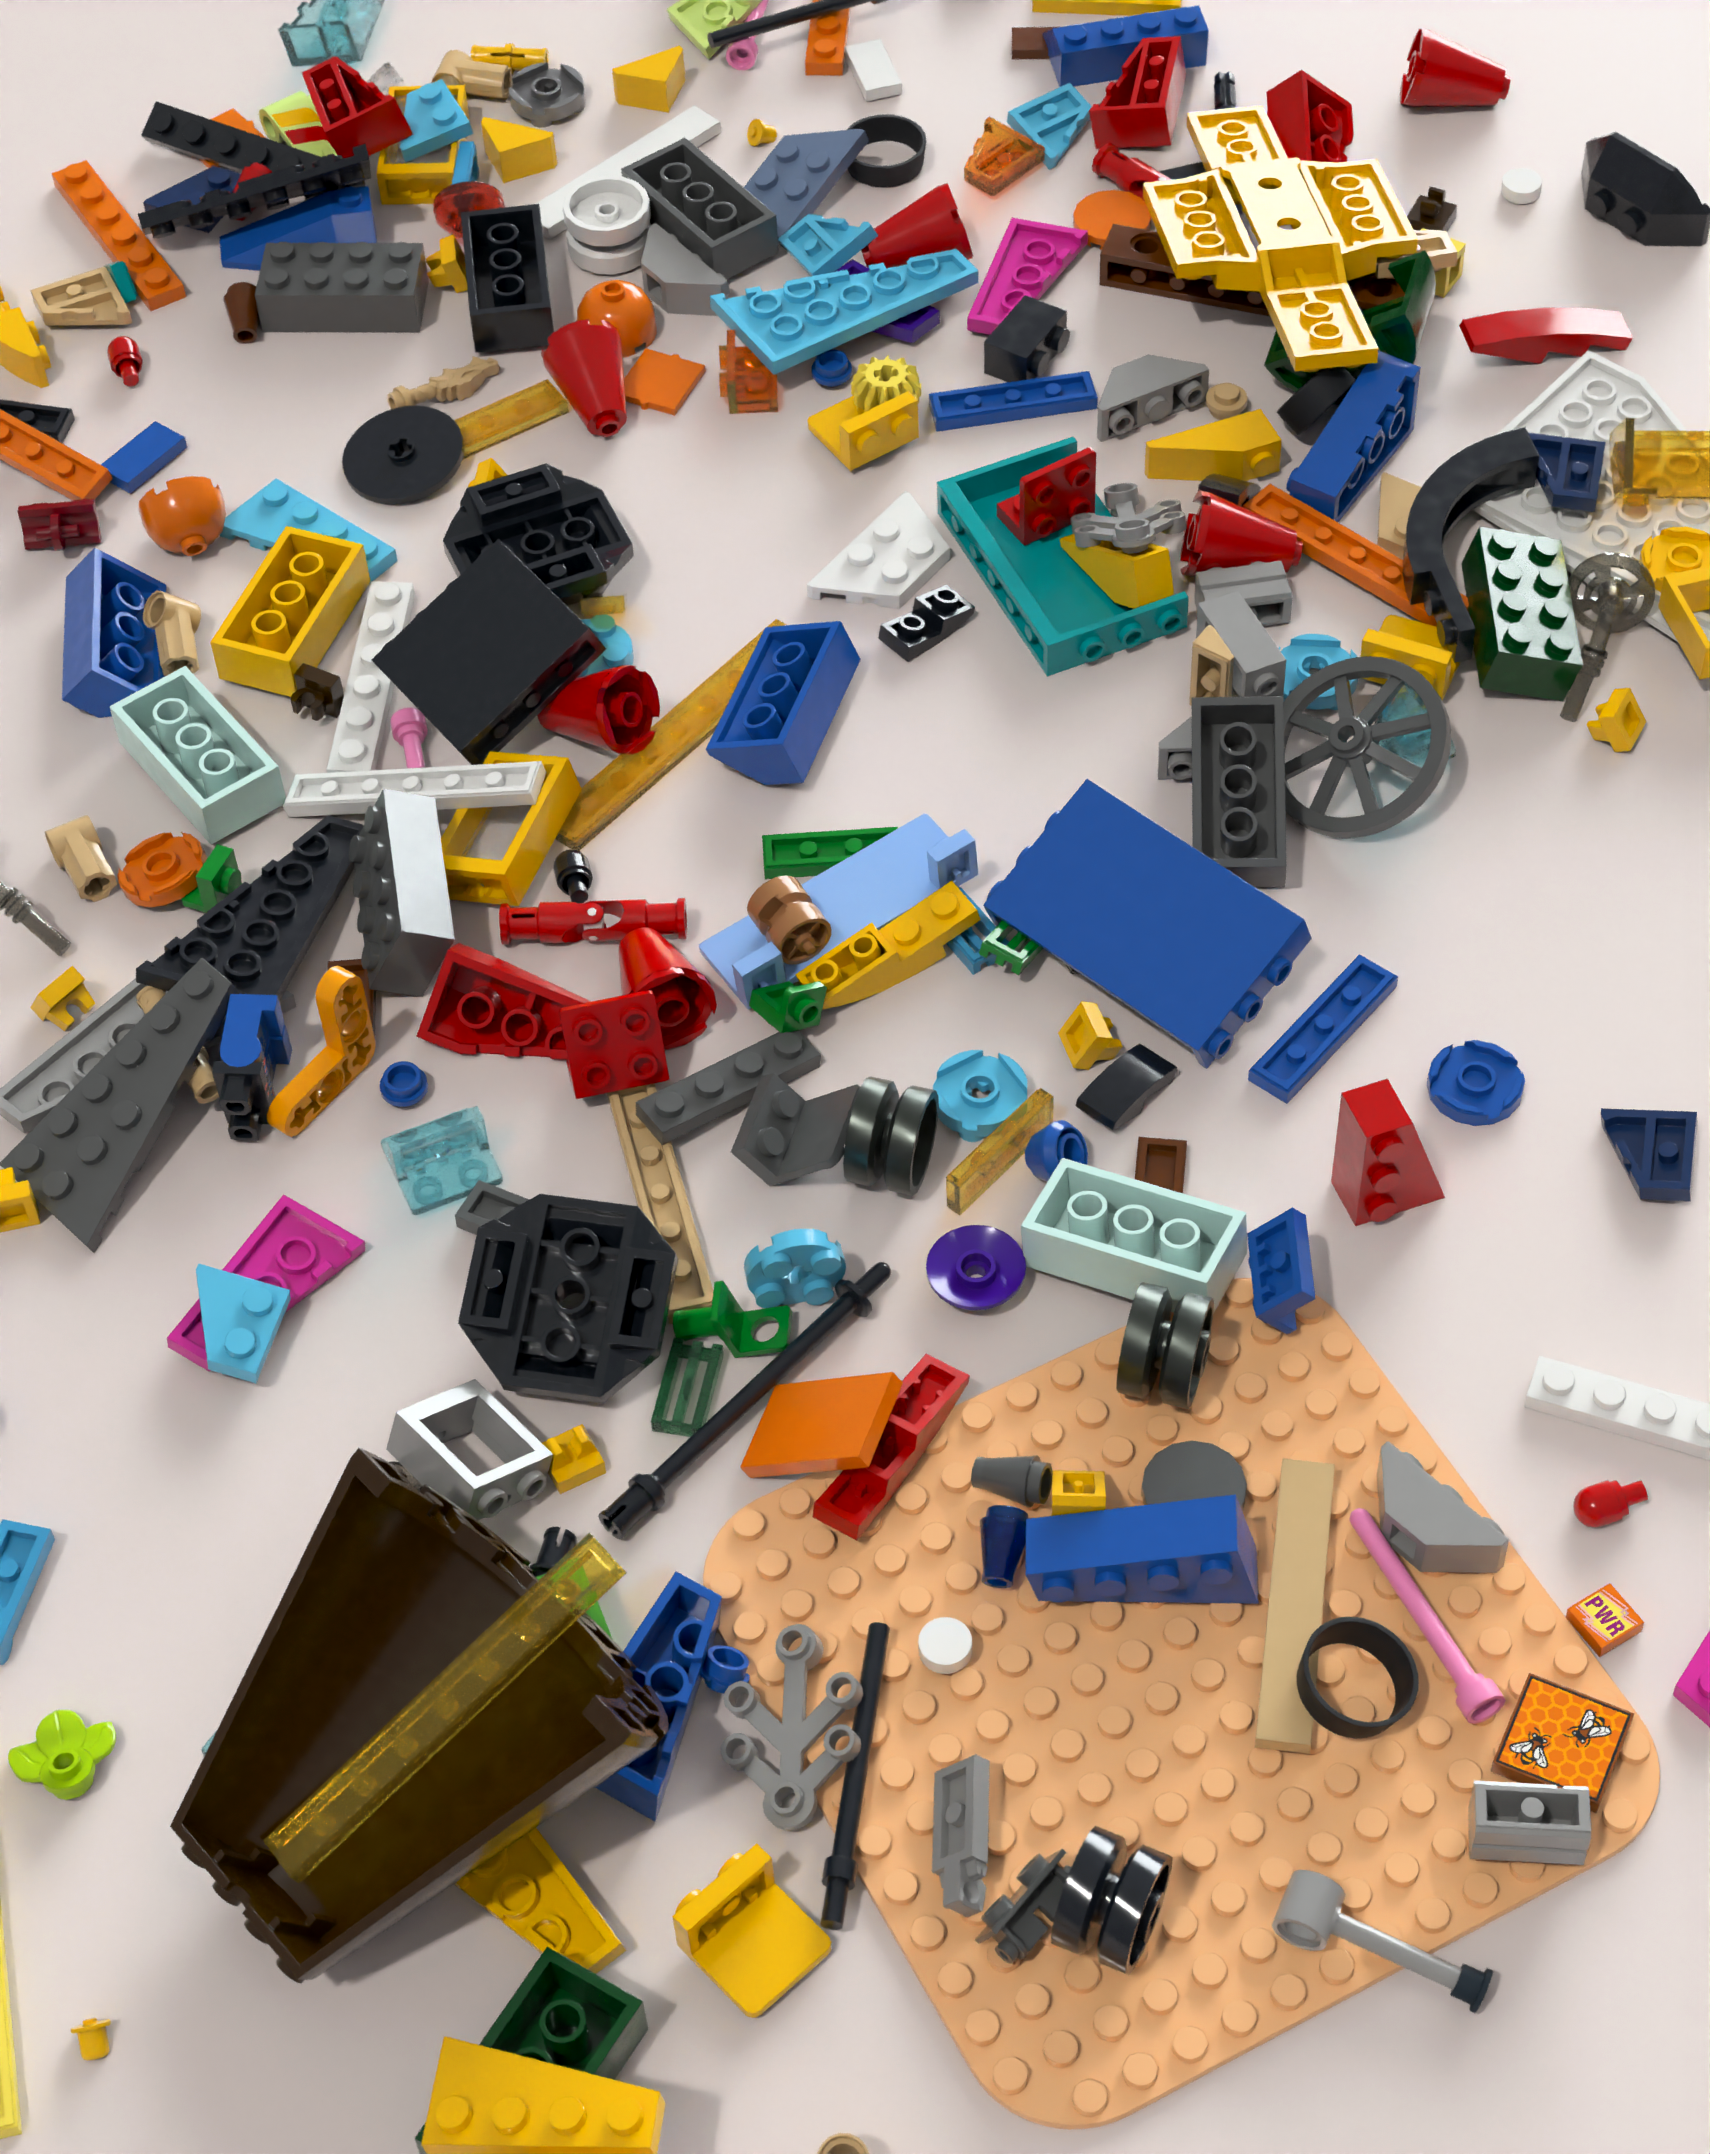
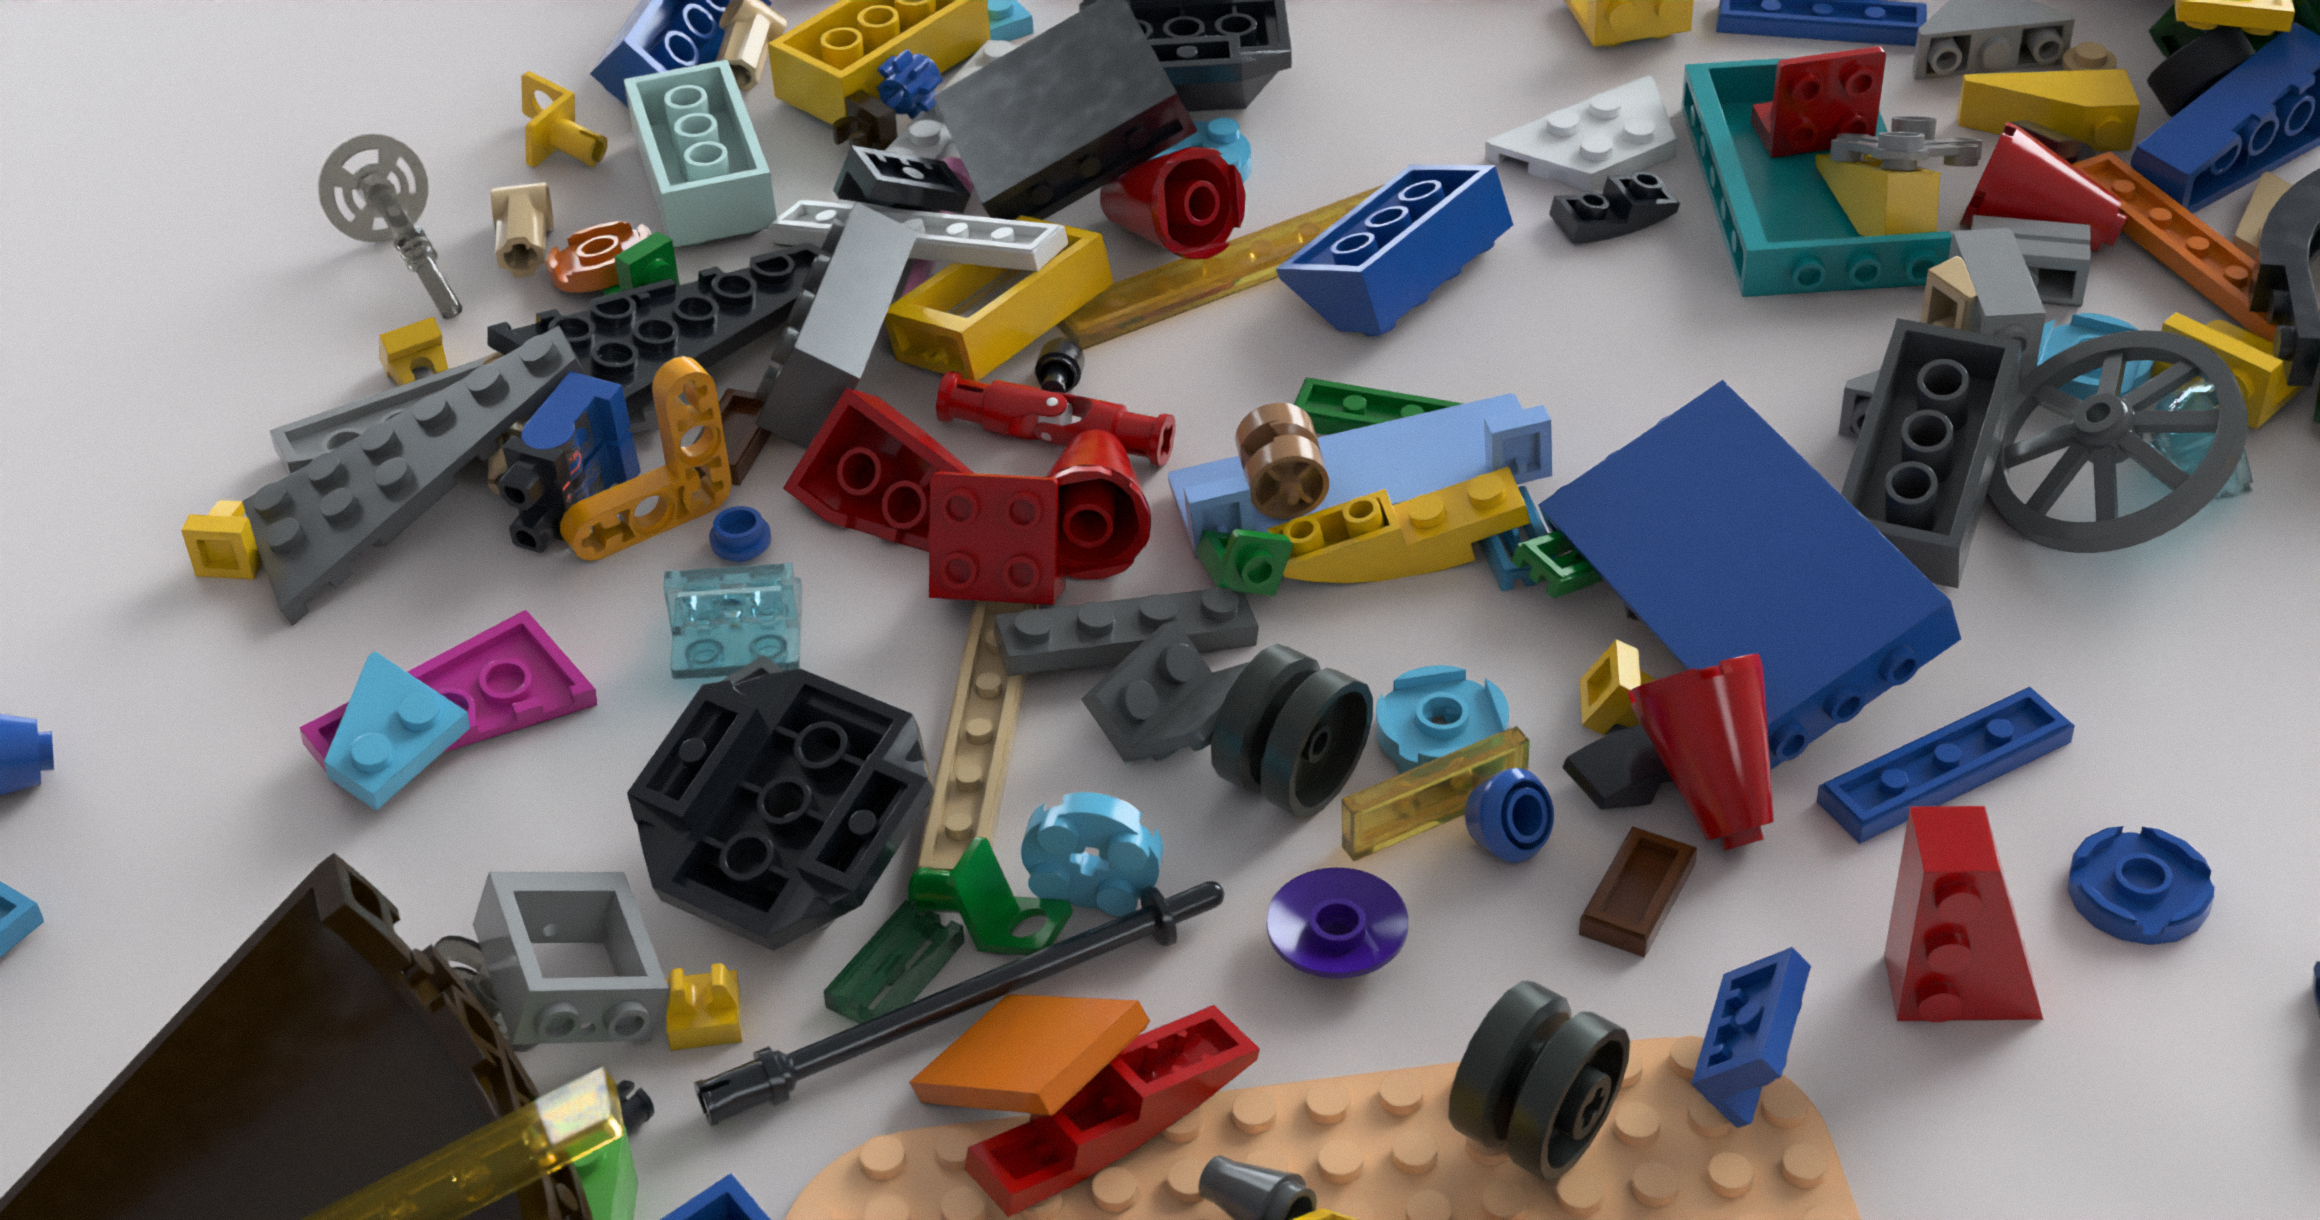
camera: 20 degrees right, 10 degrees down
(59, 758) = (555, 125): none -> yellow bracket
(338, 648) = (909, 83): none -> blue gear
(384, 746) = (900, 182): none -> black bracket
(604, 604) = (1232, 103): clear yellow tile -> none
(1131, 1232) = (1530, 909): light aqua brick -> none
(1179, 1065) = (1714, 744): none -> red cone

